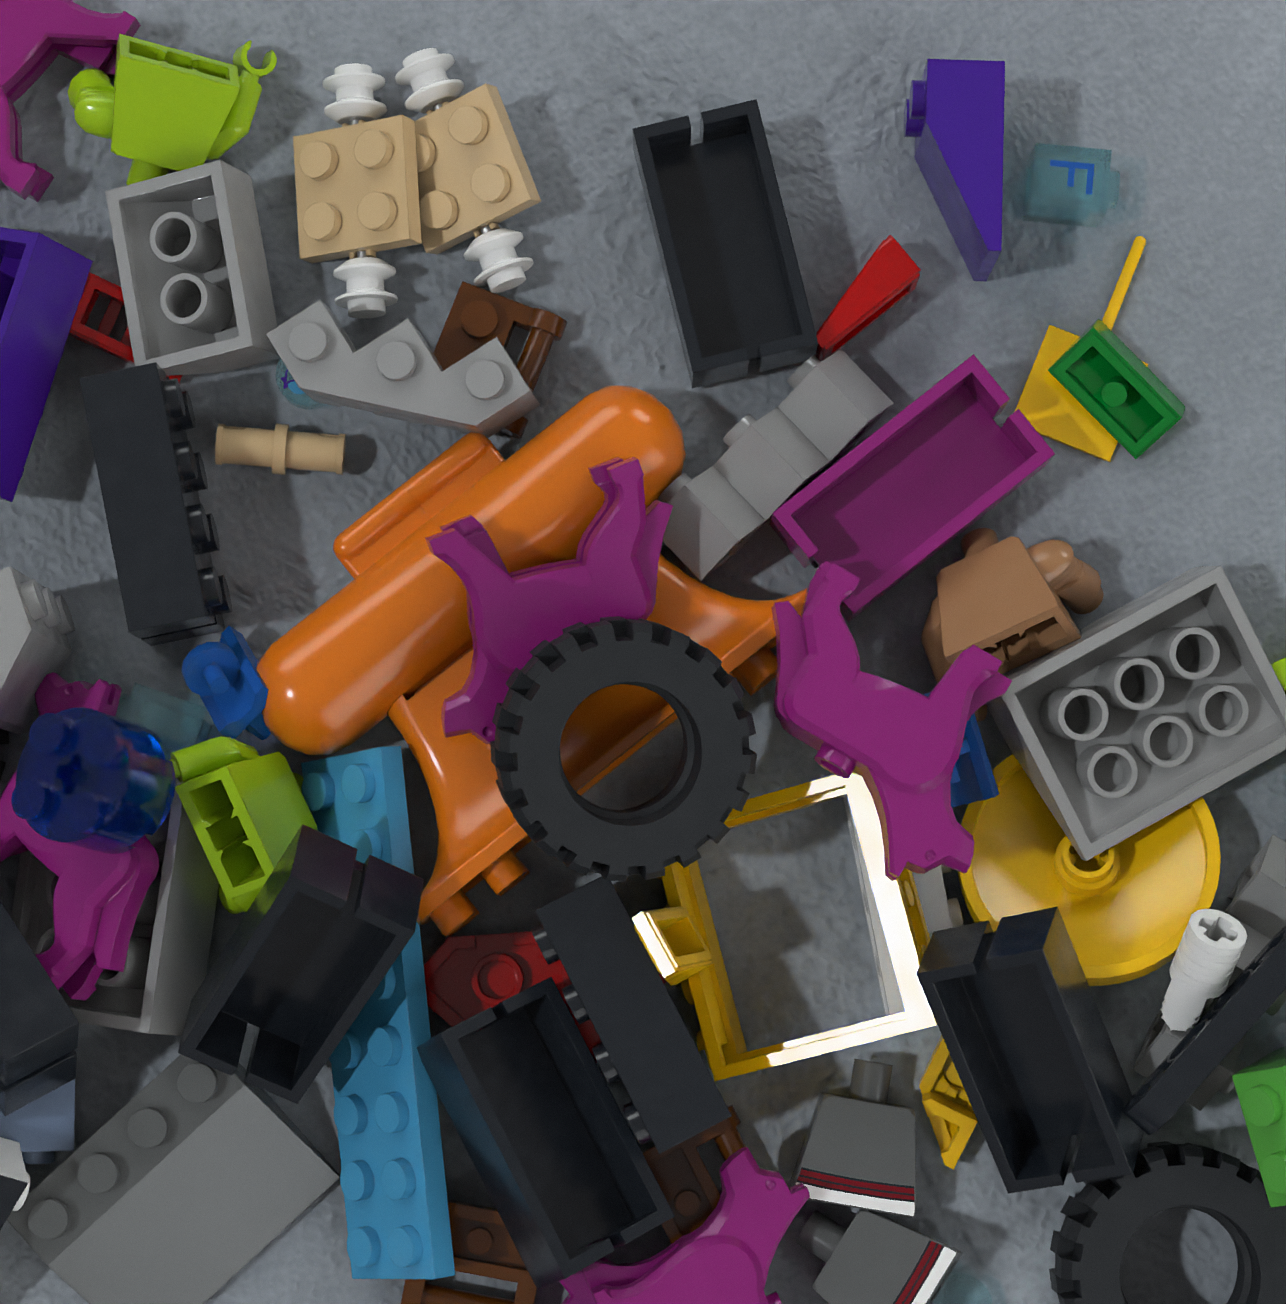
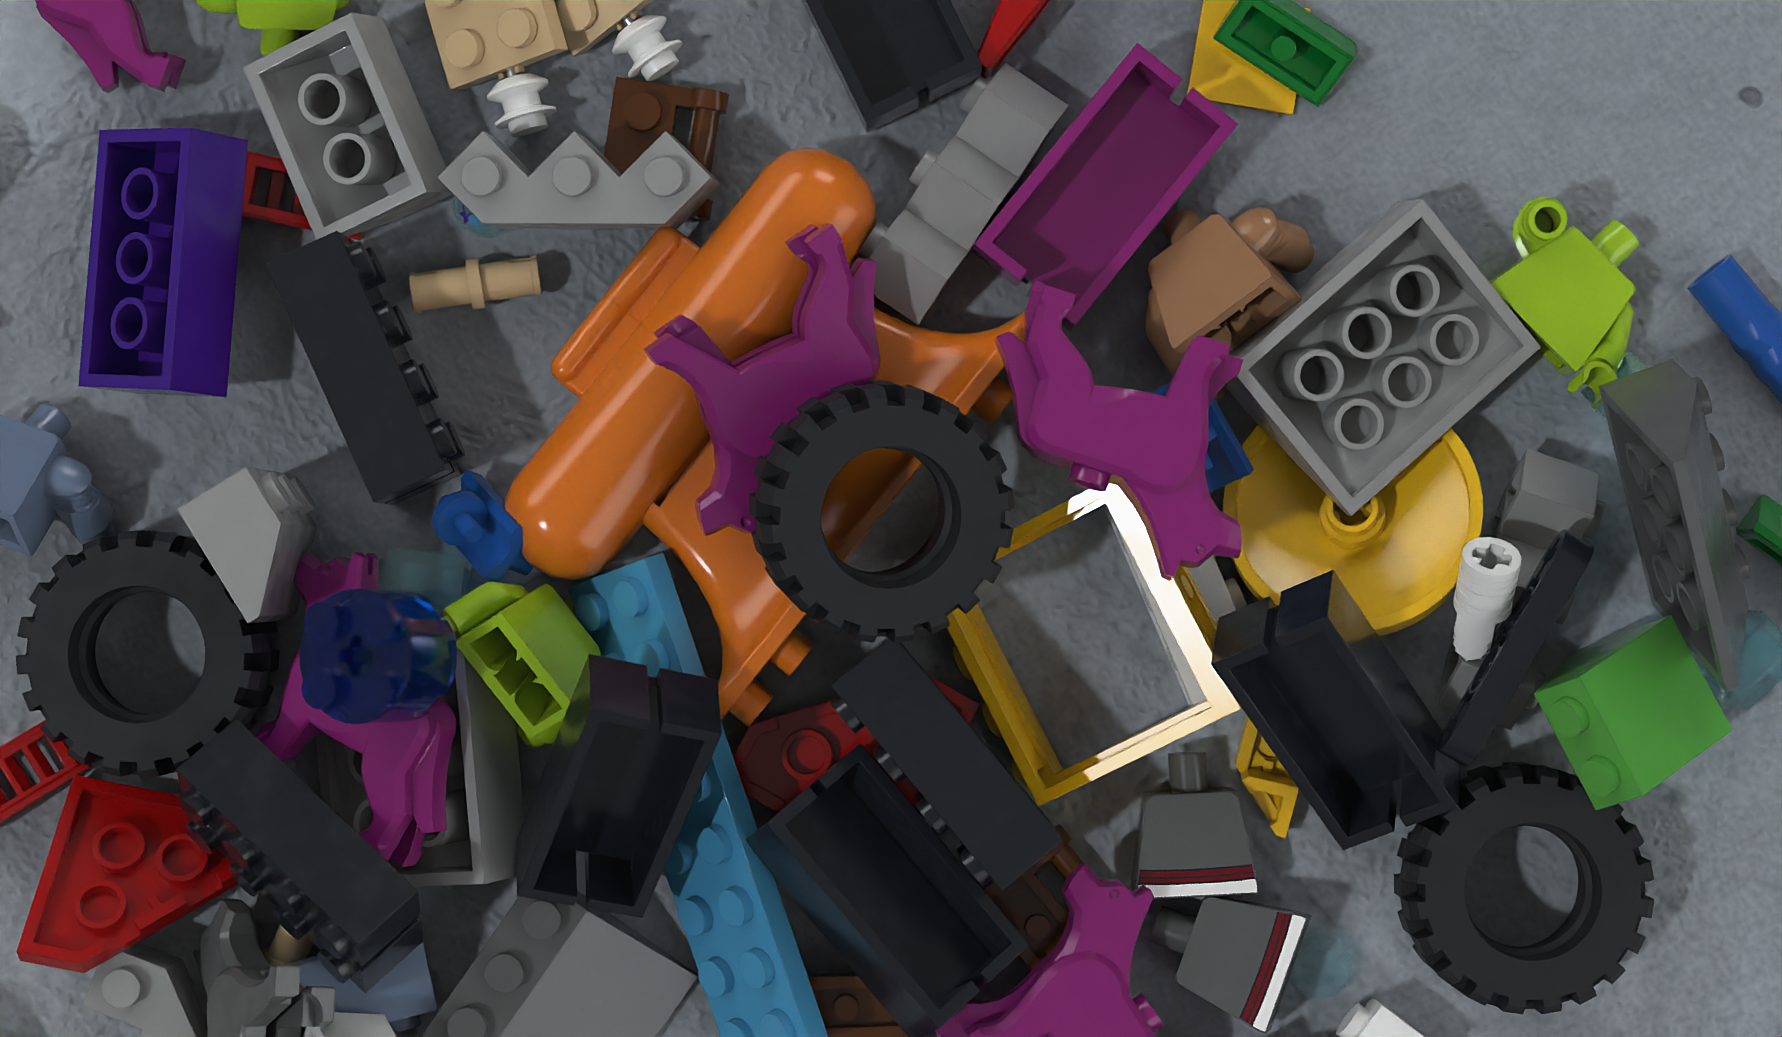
camera: 15 degrees left, 5 degrees up
(672, 943) = (969, 685): yellow slope -> none

